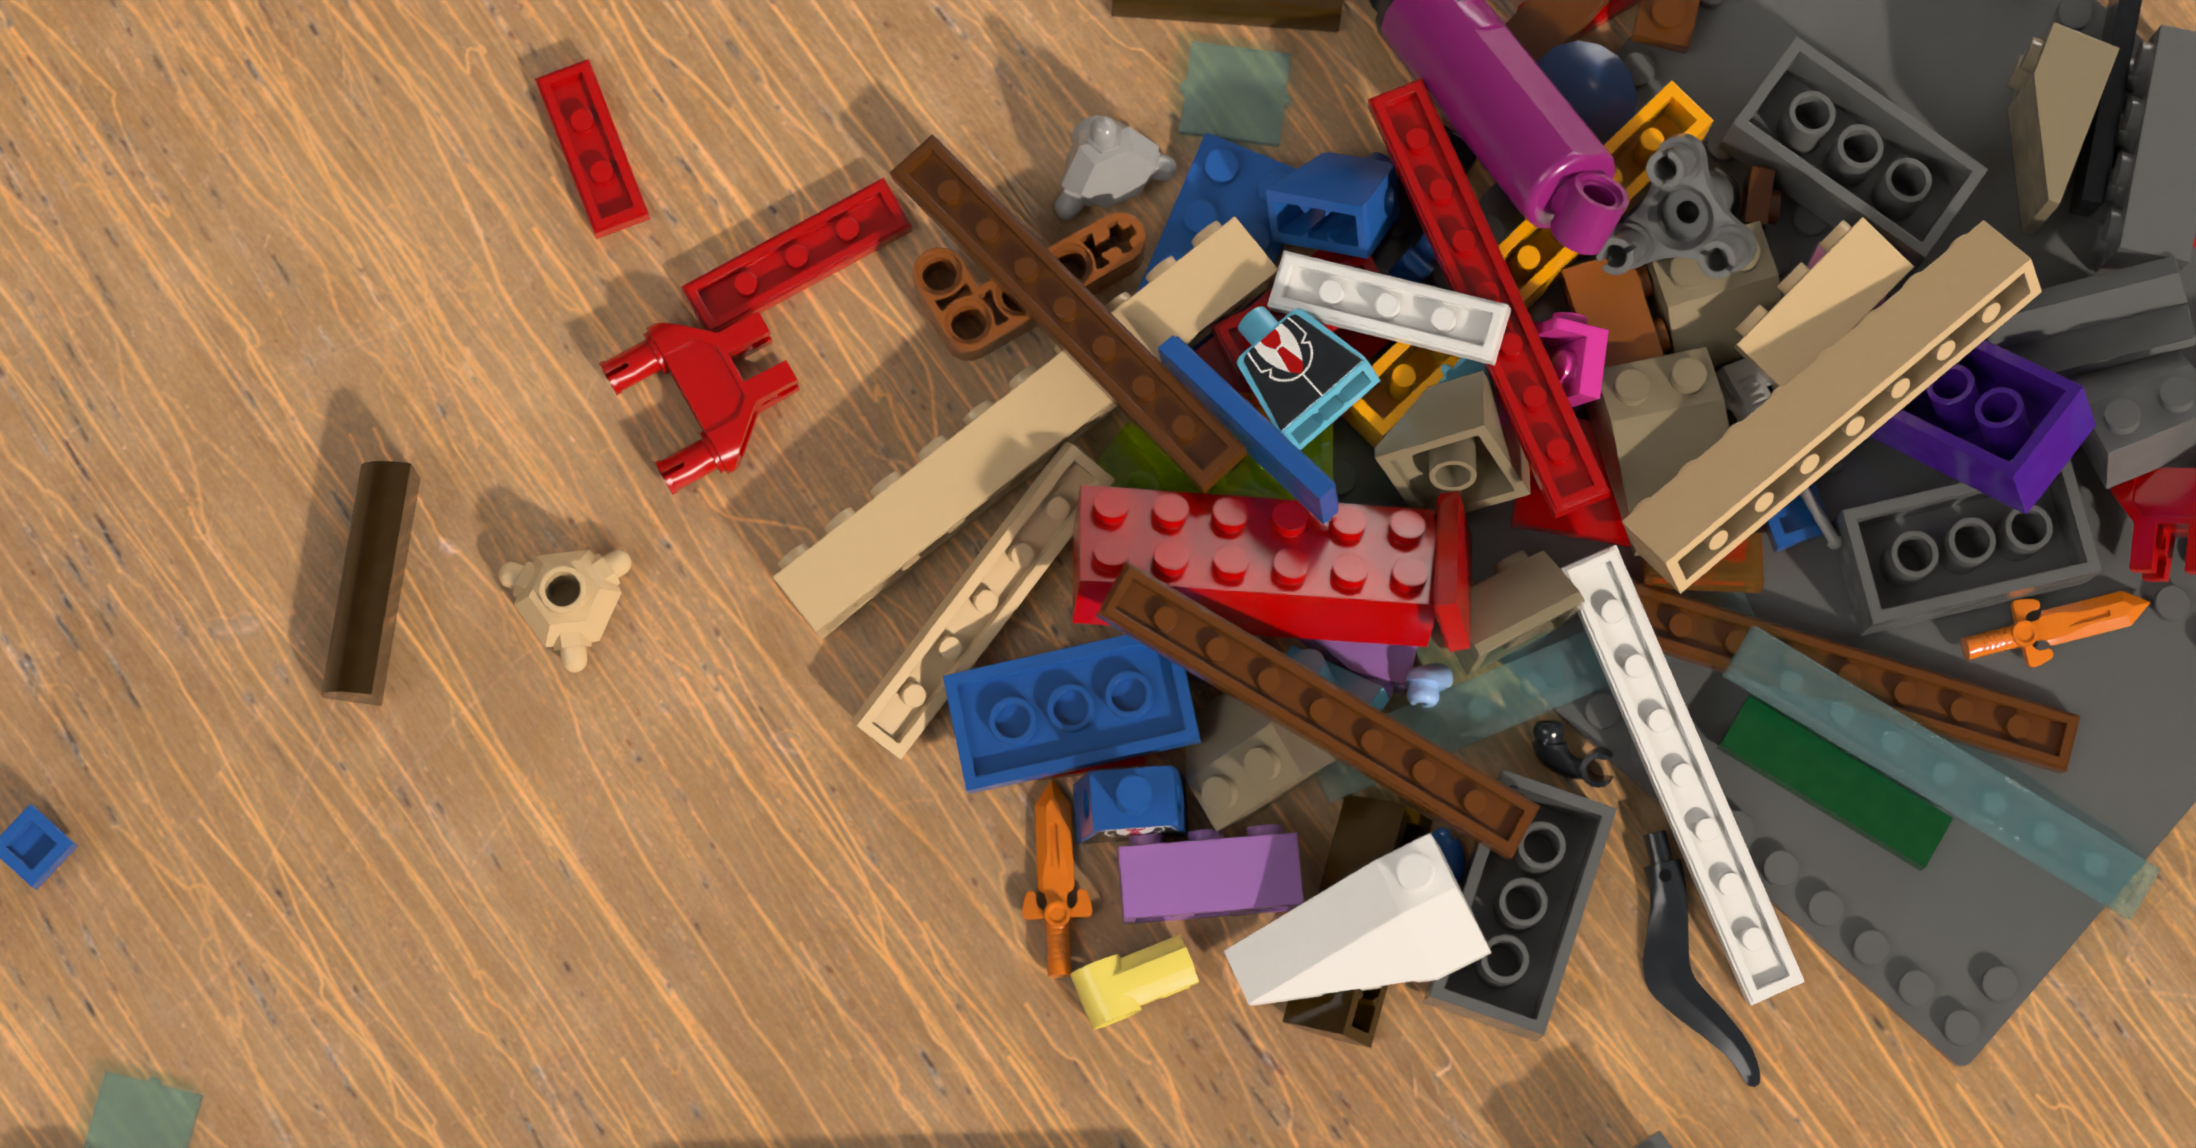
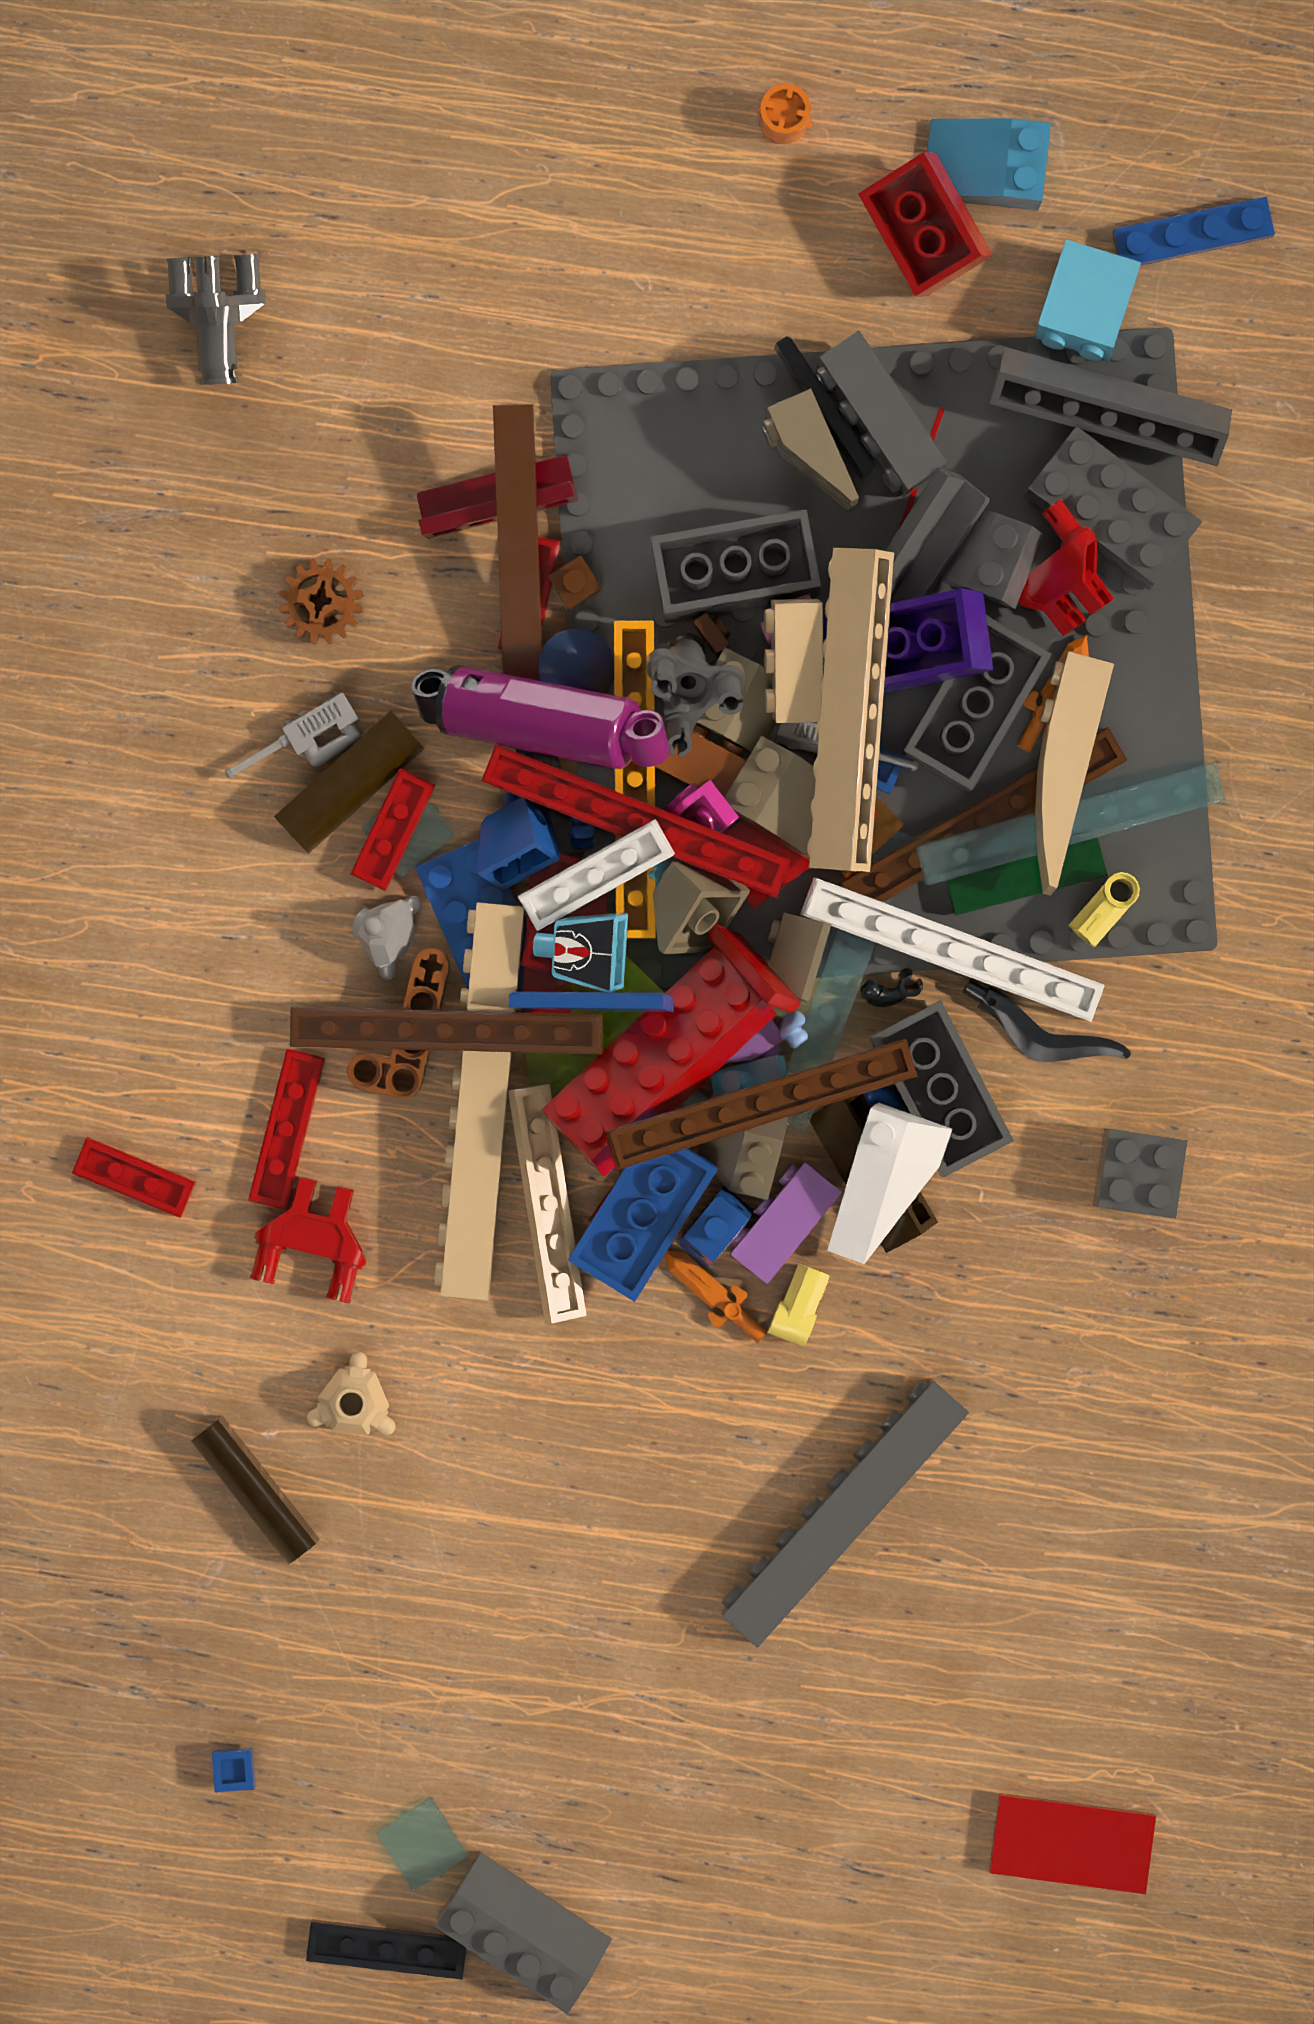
camera: 45 degrees left, 10 degrees up
(1222, 73) = (392, 829): none -> red tile
(1886, 898) = (1103, 910): none -> light yellow piece
(2011, 688) = (1065, 755): none -> tan slope

